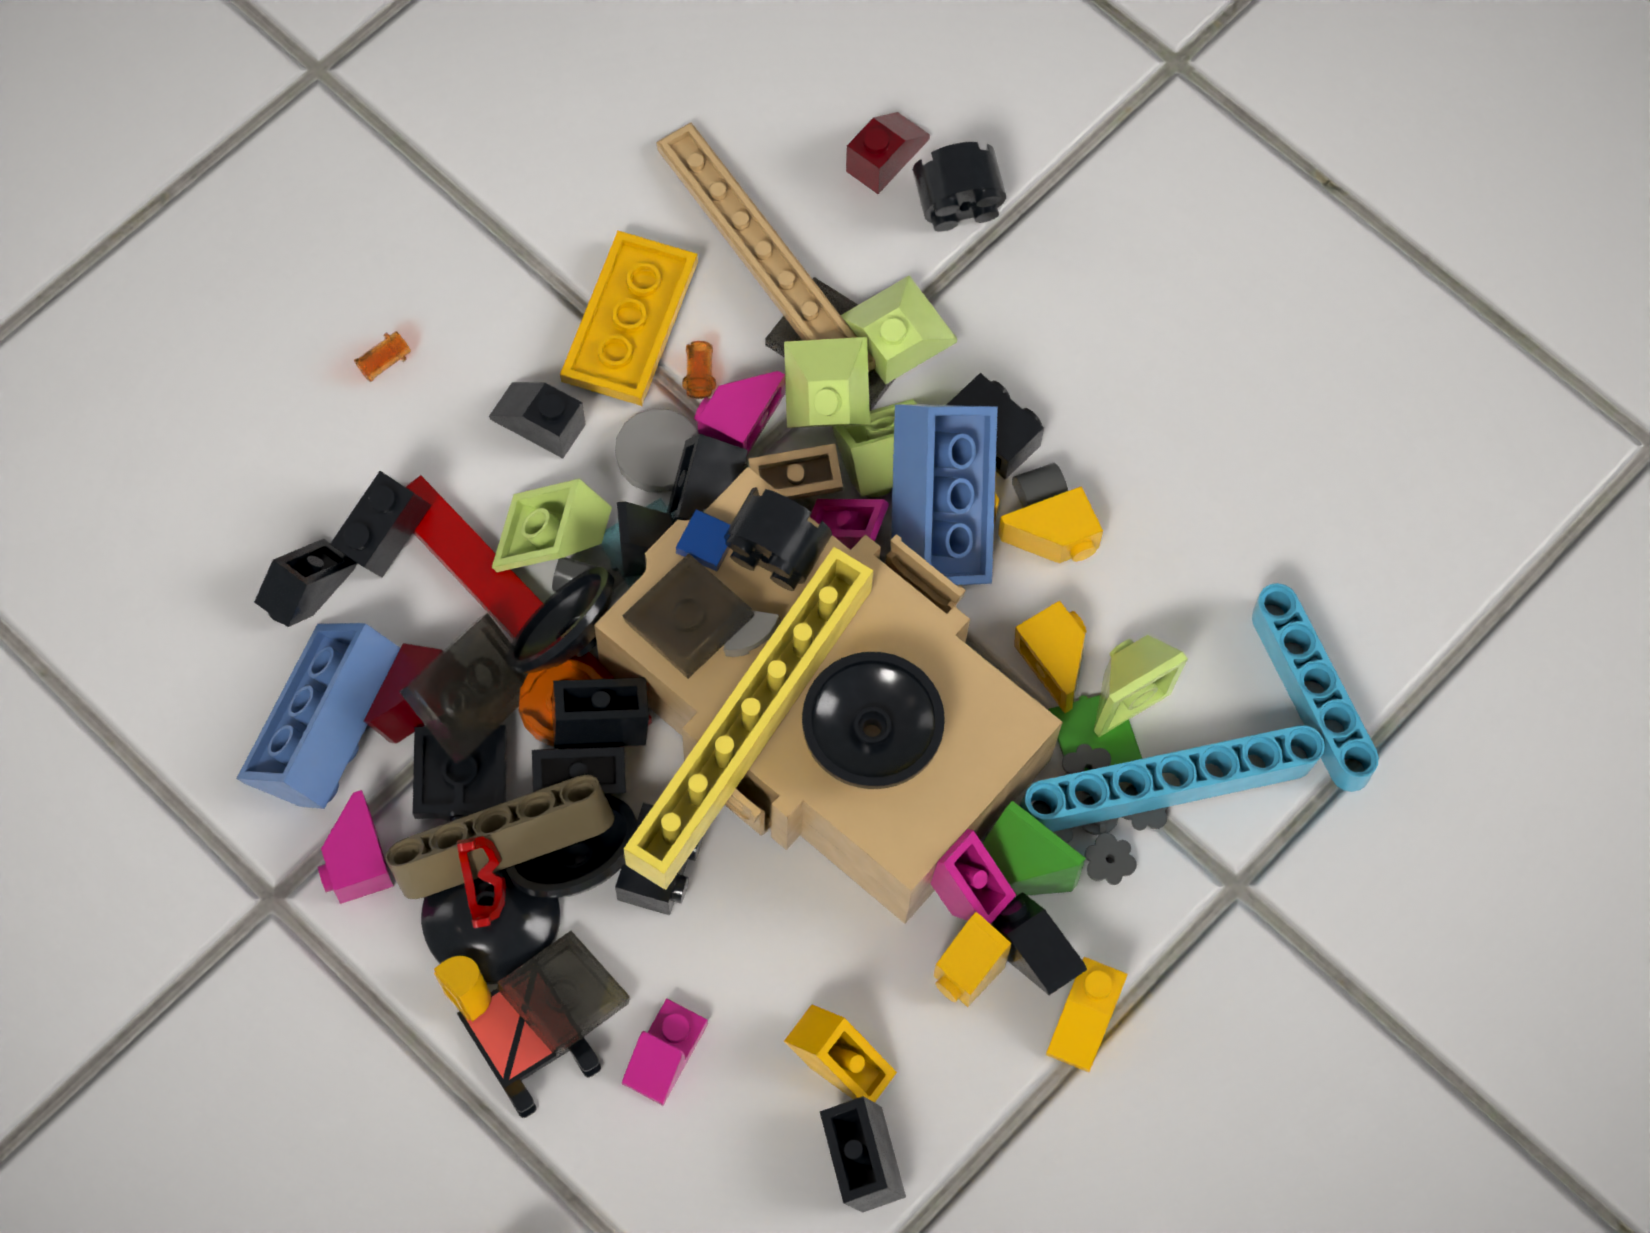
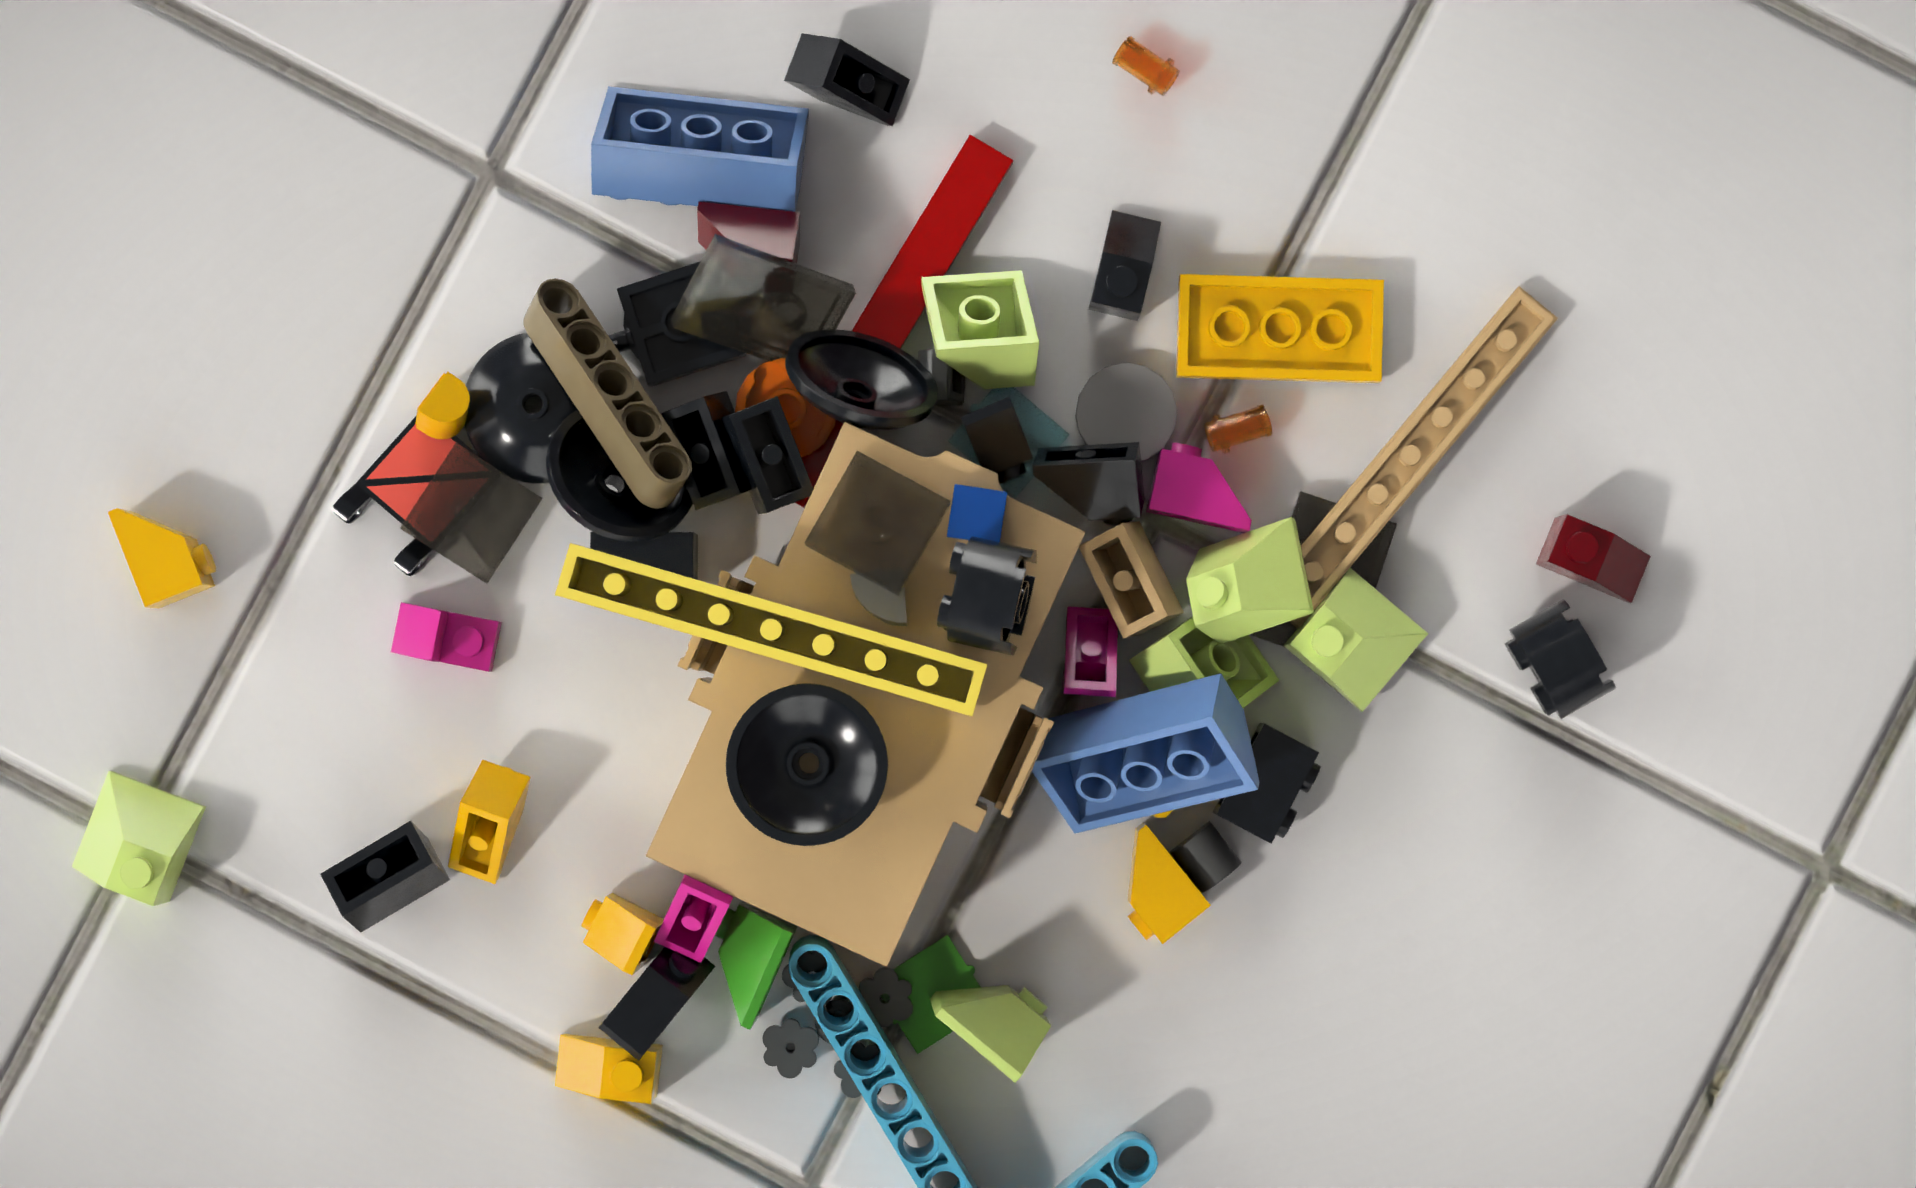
camera: 80 degrees right, 20 degrees up
(354, 854) = (557, 242): dark pink slope -> none
(380, 524) = (931, 139): black brick -> none
(481, 914) = (514, 403): red helmet -> none
(1054, 650) = (1010, 927): yellow slope -> none

